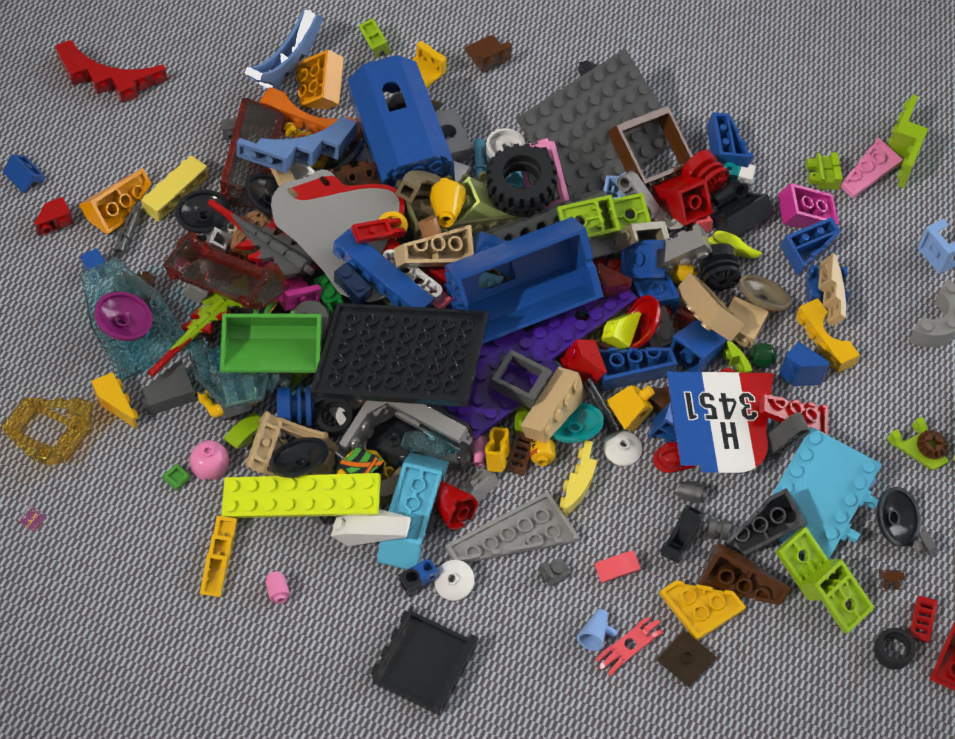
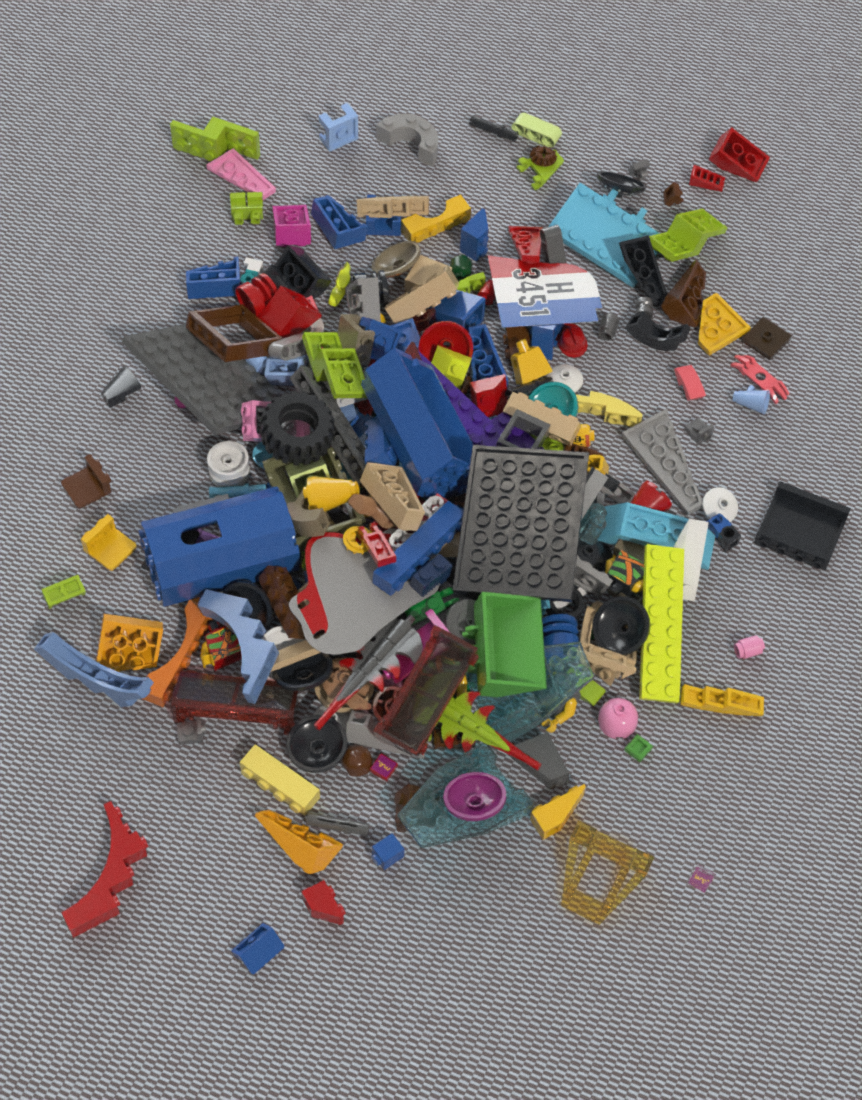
camera: 90 degrees left, 0 degrees up
(898, 634) = (738, 189): black tyre -> none

